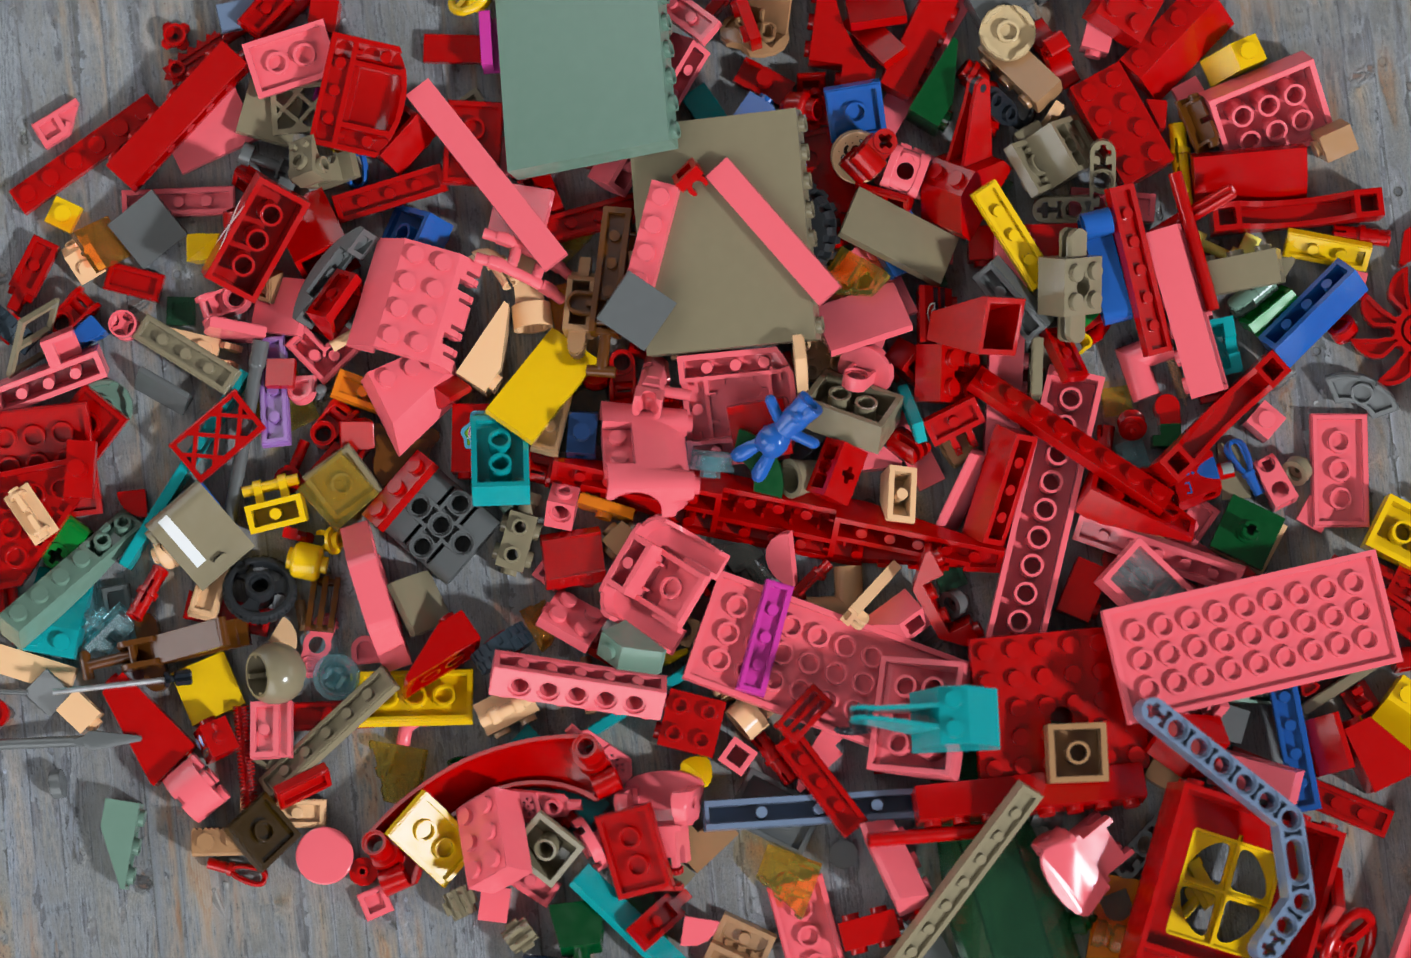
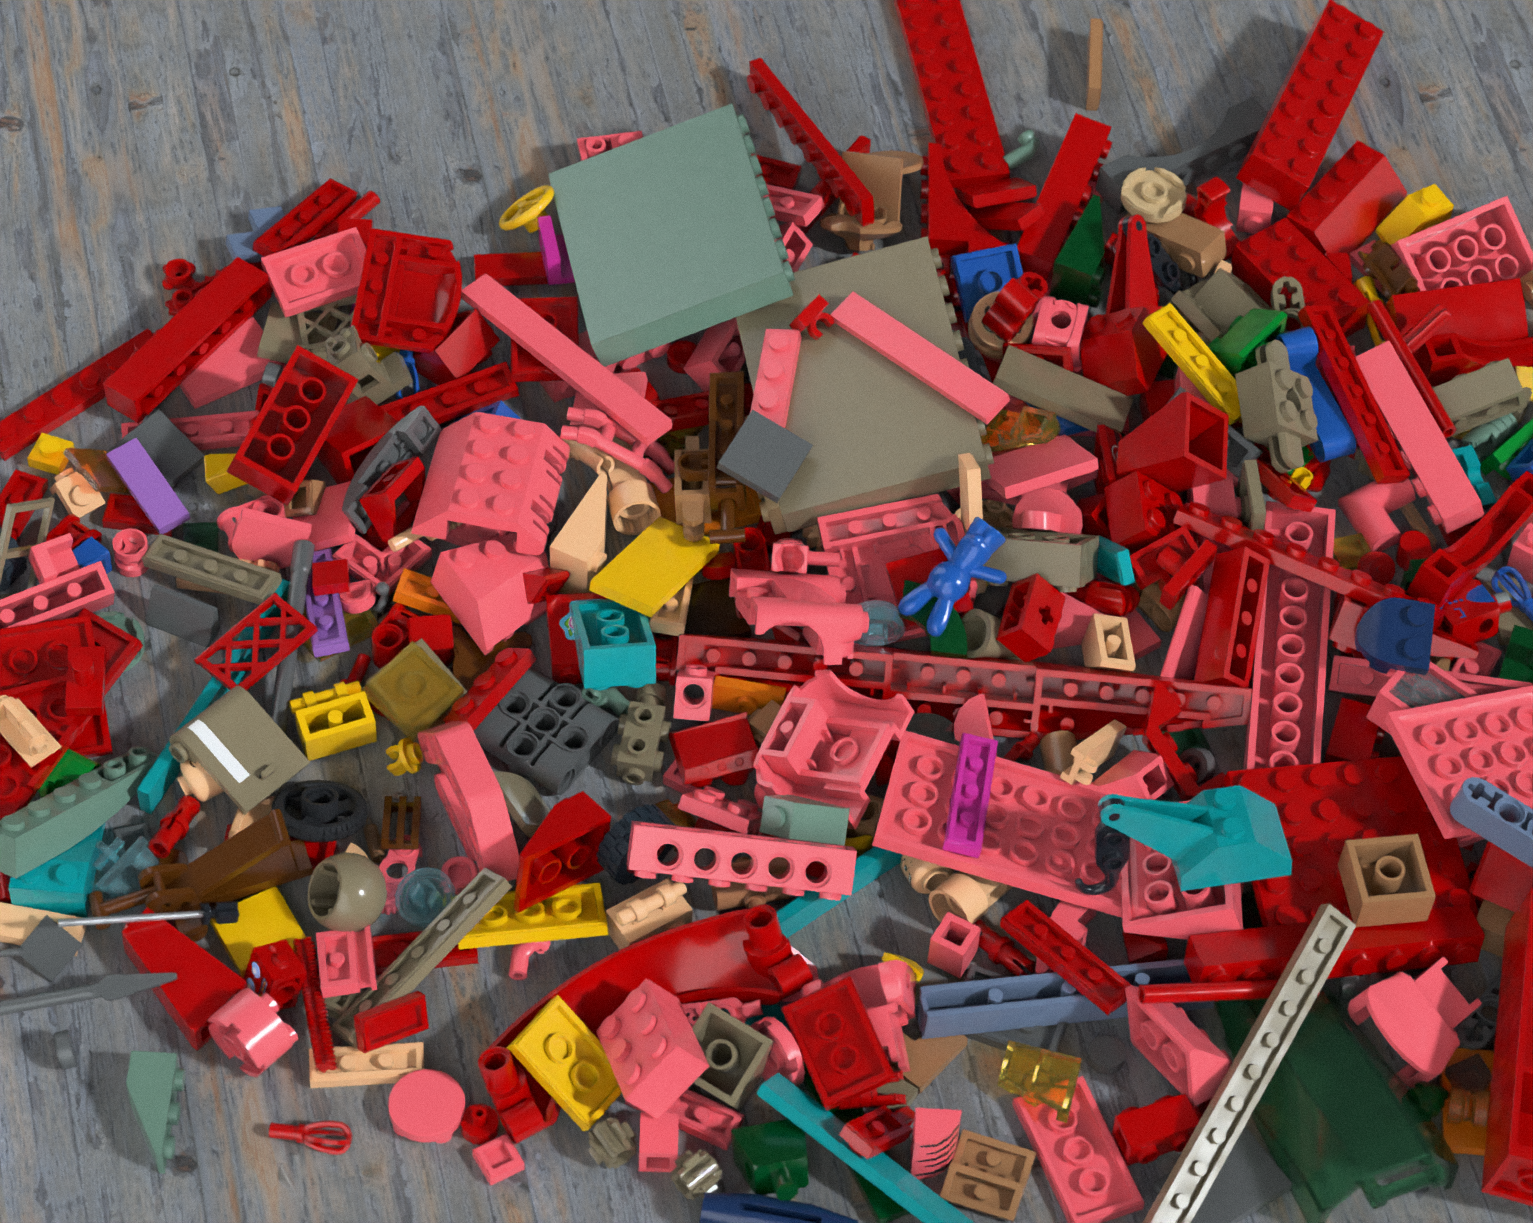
camera: 10 degrees left, 30 degrees down
(57, 124) = (39, 368): coral tile -> none
(81, 712) = (90, 961): light nougat brick -> none
(134, 502) = (150, 735): red tile -> none
(139, 264) = (148, 486): none -> medium lavender tile
(212, 842) = (289, 1095): medium nougat brick -> none
(262, 832) = (343, 1070): dark brown tile -> none
(296, 535) = (360, 756): red tile -> none
(306, 561) = (377, 777): yellow head -> none
(398, 768) = (510, 995): clear yellow slope -> none
(582, 434) = (711, 604): dark blue torso -> none
(690, 723) = (887, 914): red brick -> none
(786, 731) = (1018, 888): red tile -> none
(966, 441) = (1183, 571): none -> red tile
(1056, 209) = (1244, 335): none -> green slope
(1126, 528) = (1397, 635): none -> dark blue slope

